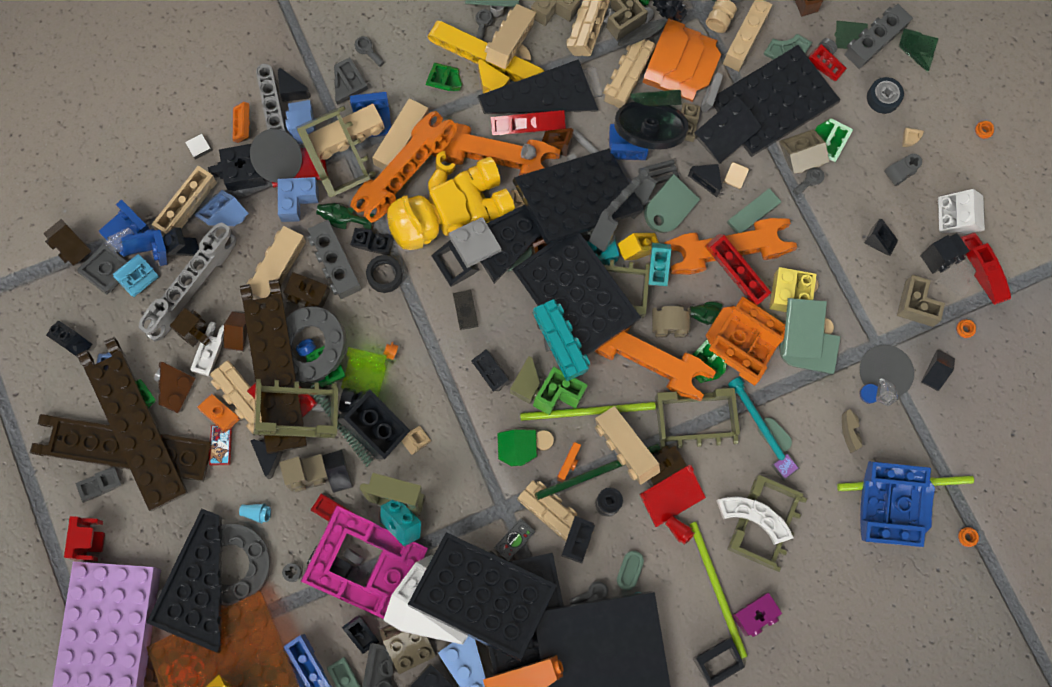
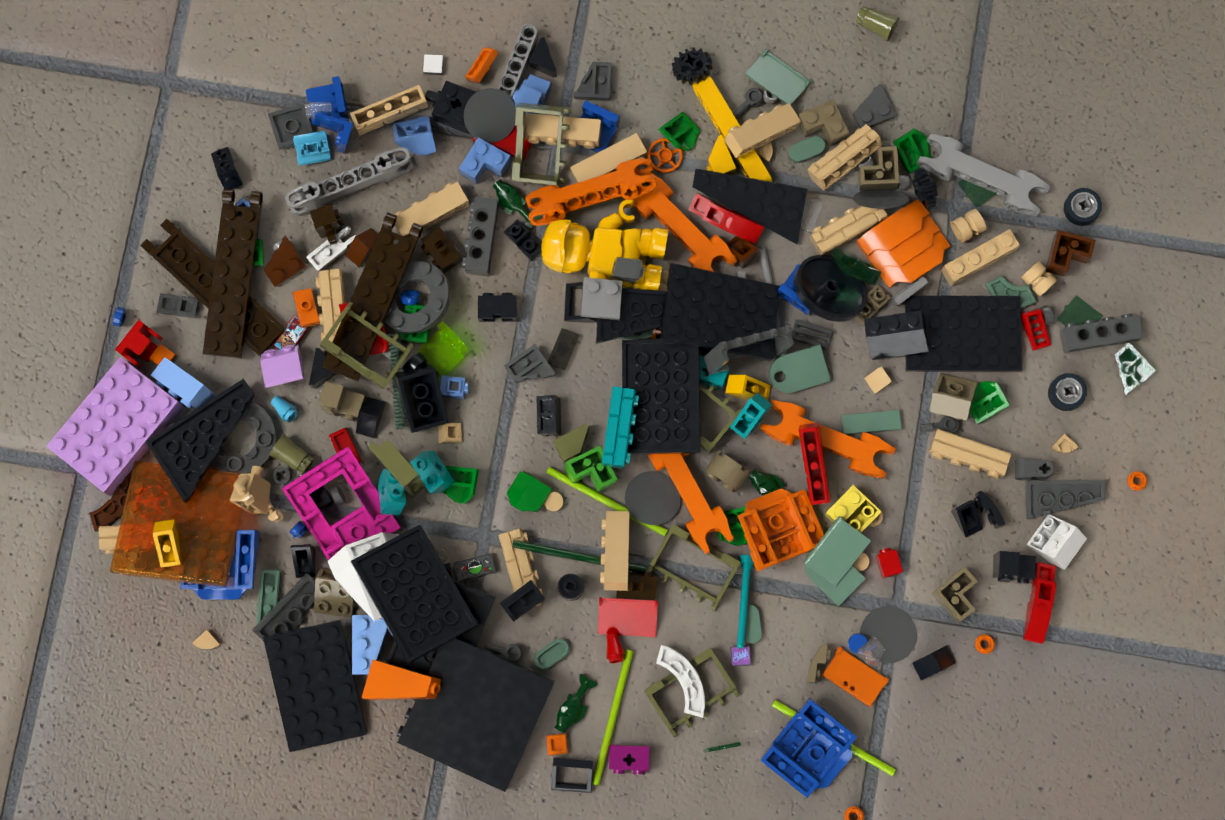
camera: 45 degrees right, 5 degrees up
(49, 527) = (119, 316): none -> blue tile
(67, 242) = (273, 85): dark brown brick -> none
(113, 538) = (161, 352): none -> orange tile
(147, 550) = (181, 384): none -> light blue wedge
(178, 245) = (362, 145): black bracket -> none
(229, 475) = (282, 365): none -> lavender slope
(276, 604) = (252, 494): none -> tan torso
(288, 548) = (291, 454): none -> olive plant
(337, 610) = (298, 530): none -> blue plate
(364, 46) = (631, 59): dark grey plate -> none
(379, 260) = (515, 261): black tyre -> none
(387, 308) = (497, 306): none -> black brick
(390, 351) = (477, 345): orange plate -> none
(395, 398) = (453, 387): none -> medium blue window
(418, 21) = (685, 72): none -> black gear
(432, 483) = (432, 472): none -> teal brick
(443, 104) = (664, 156): none -> orange wheel
(447, 340) = (529, 366): none -> dark grey wing
(454, 476) = (465, 484): none -> green slope
(481, 204) = (627, 269): none -> dark grey slope
(528, 152) = (705, 245): light grey hinge -> none
(554, 33) = (806, 149): none -> sand green tile
(570, 462) = (561, 534): orange plate -> none
(623, 384) = (652, 498): none -> dark grey sticker
(680, 606) = (572, 709): none -> dark green animal
(687, 645) = (557, 744): none -> orange tile
(708, 177) = (851, 365): black slope -> none
(803, 22) = (1039, 278): none -> tan wheel
(827, 552) = (722, 747): none -> clear green piece
(847, 187) = (969, 453): none -> tan brick
(848, 313) = (889, 563): none -> red brick
(876, 419) = (849, 669): none -> orange door
(900, 221) = (986, 504): none -> black slope
(934, 179) = (1060, 495): none -> dark grey wing

